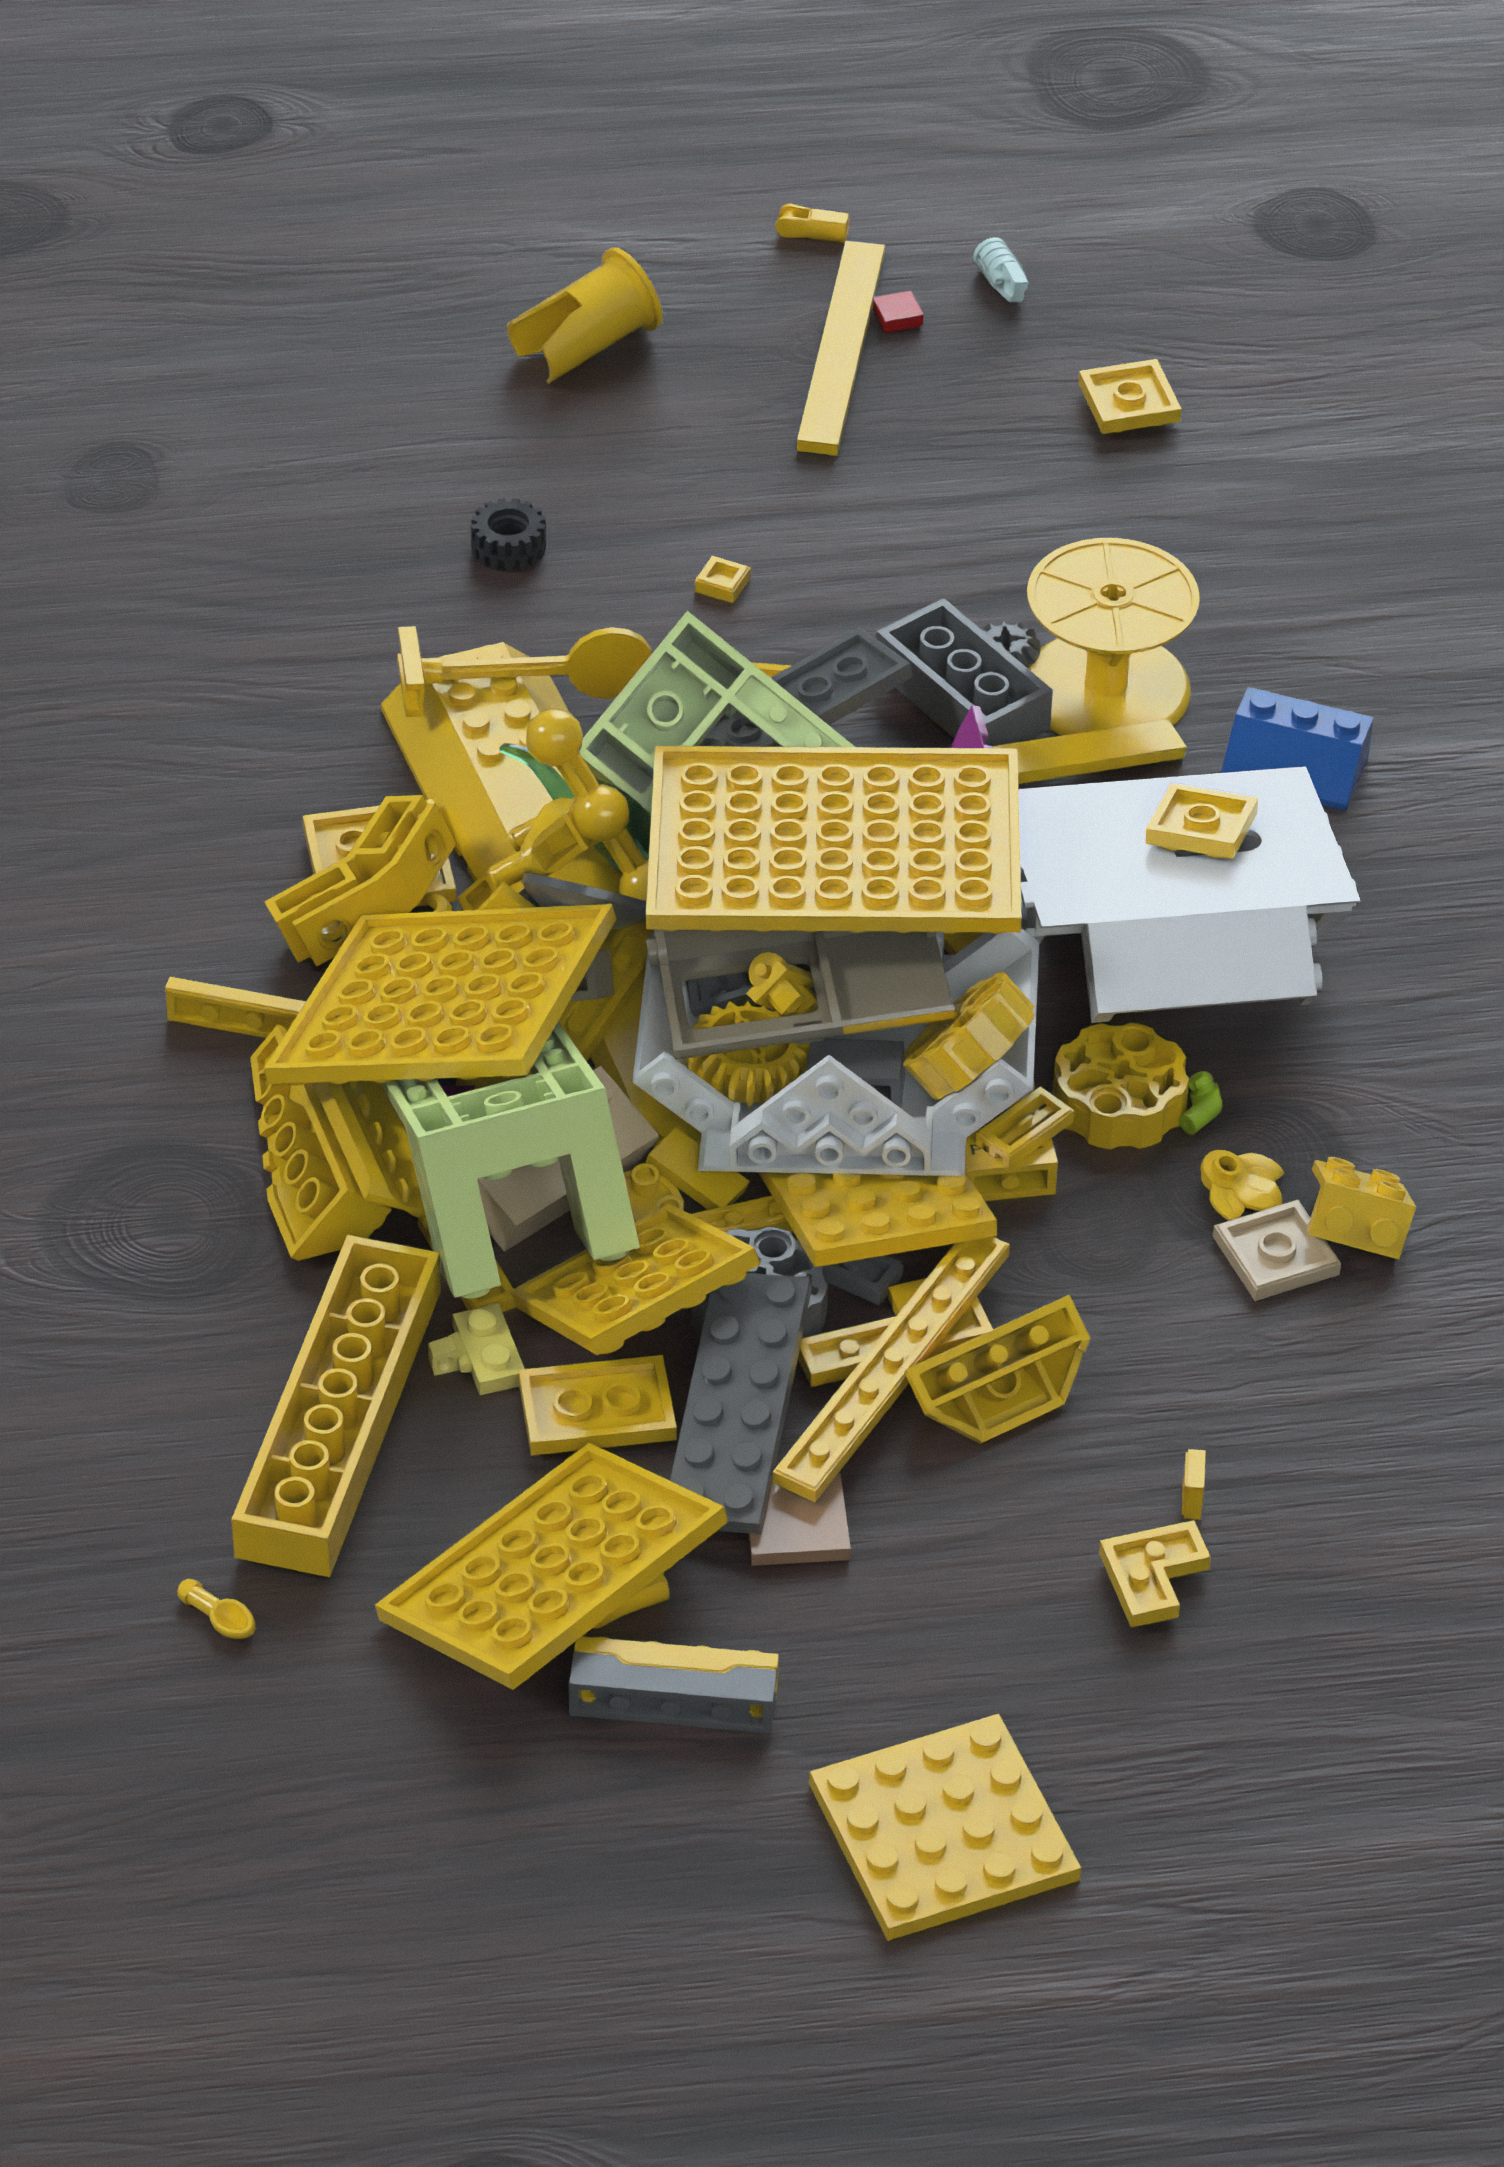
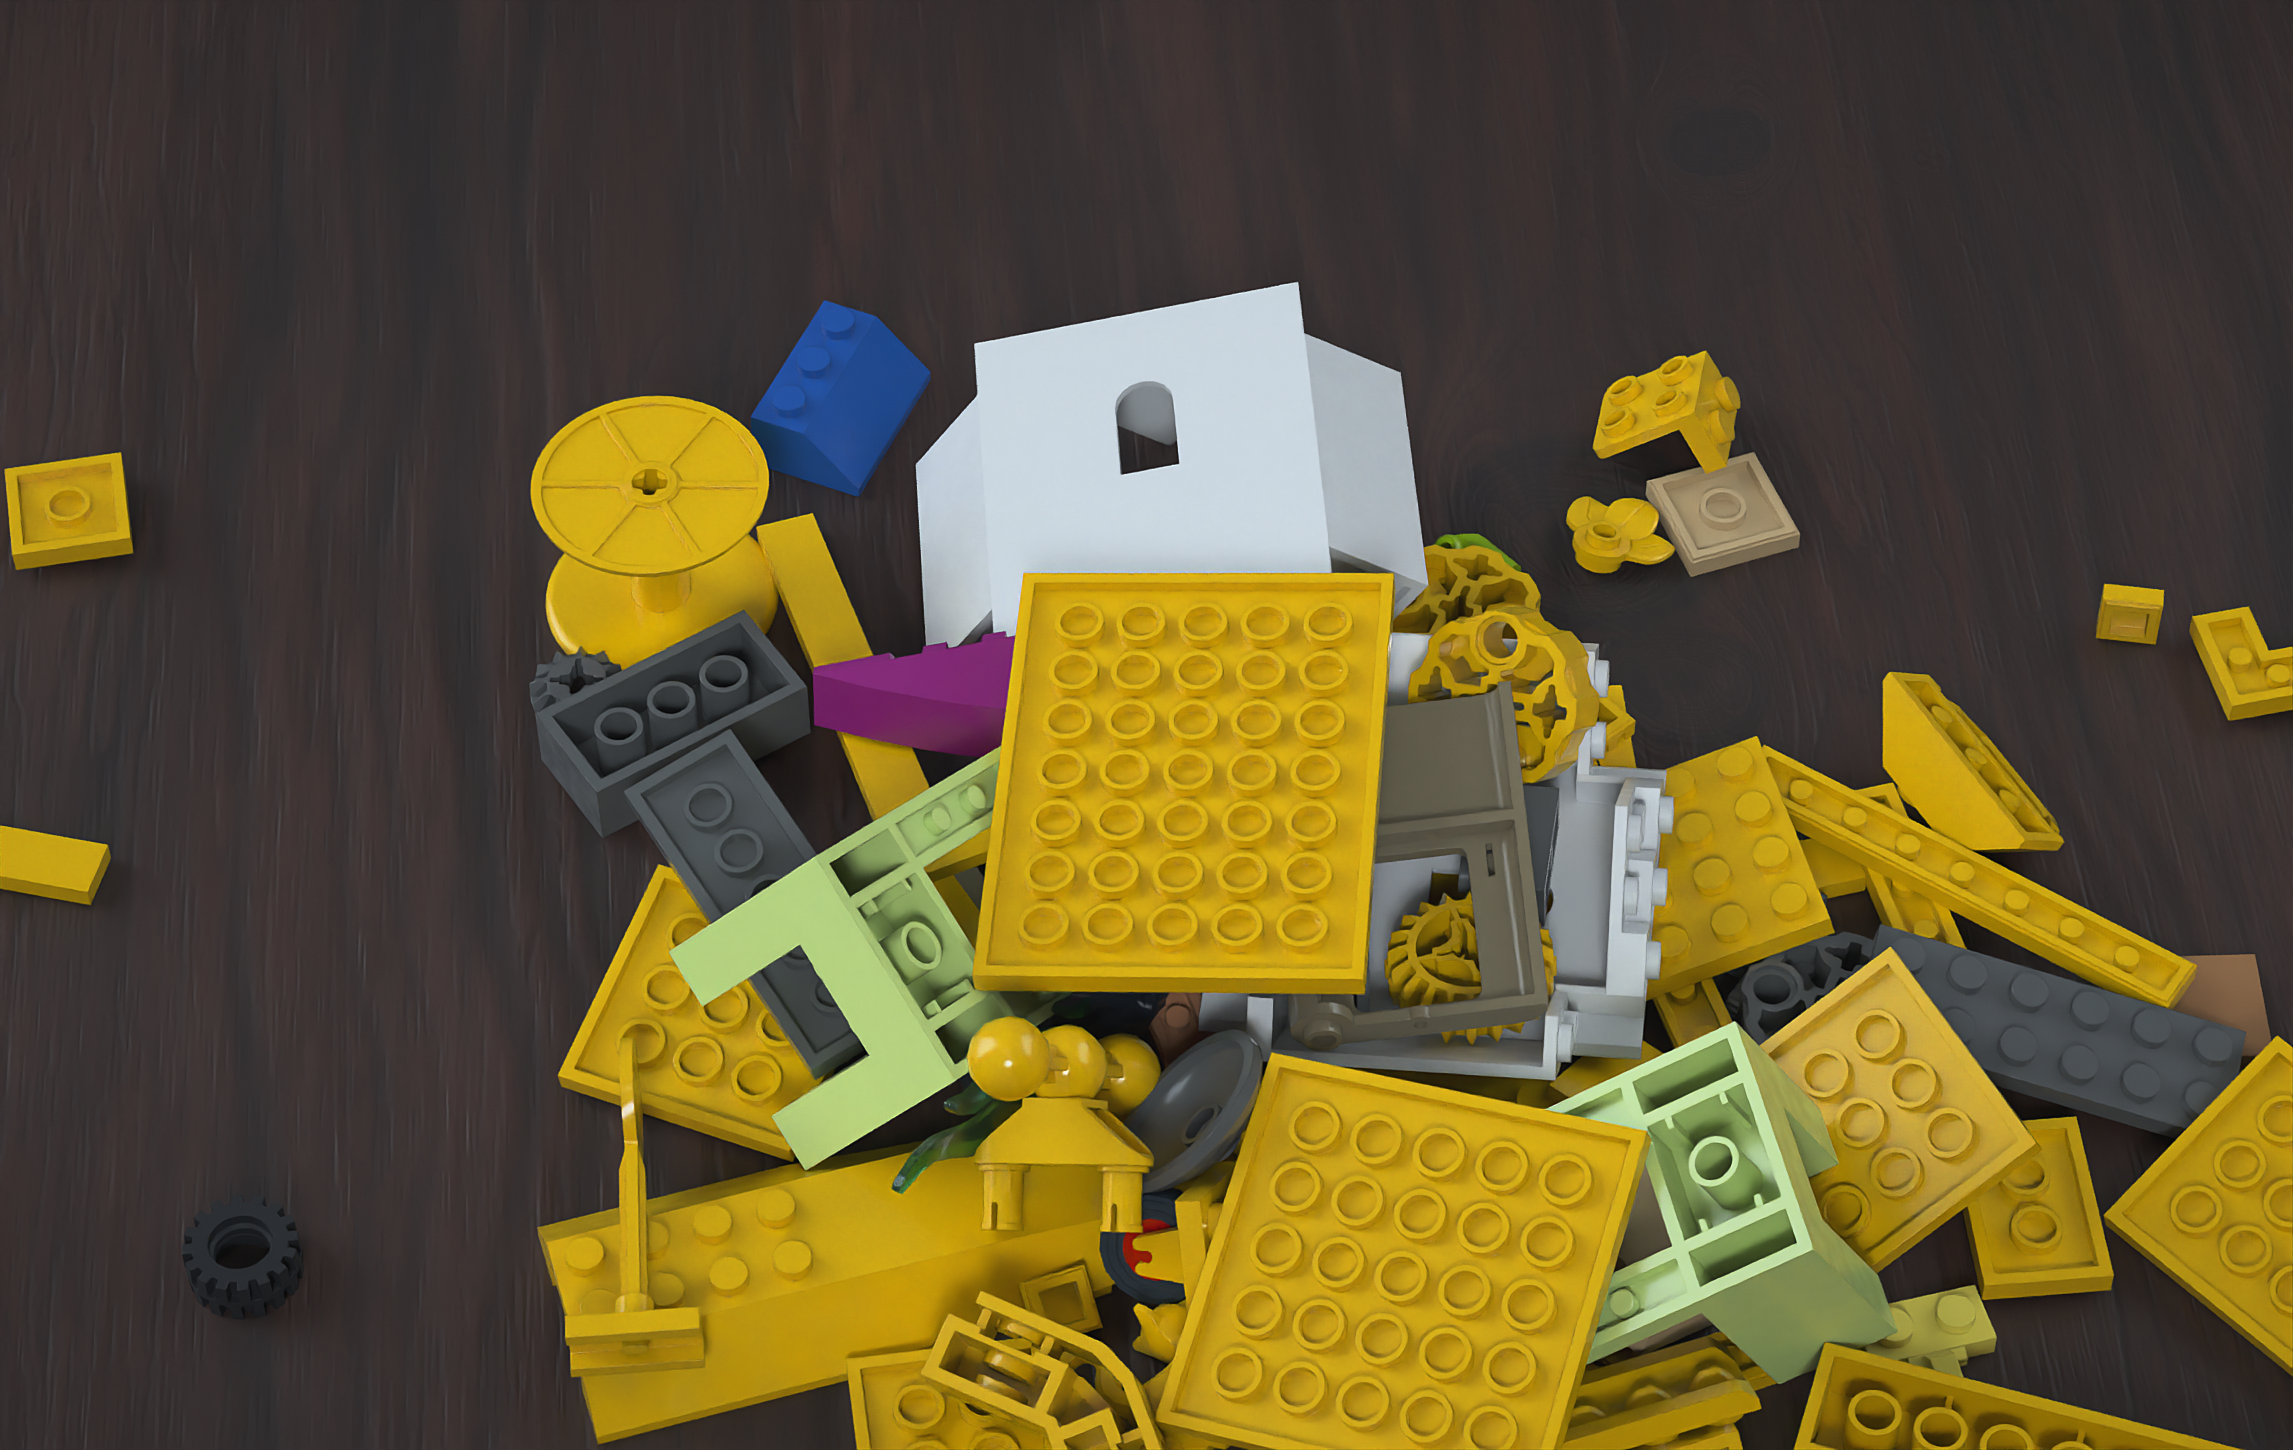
camera: 85 degrees left, 5 degrees up
(722, 579) = (376, 1004): yellow tile -> none
(781, 985) = (1414, 890): yellow hips -> none
(1201, 821) = (1126, 425): yellow plate -> none

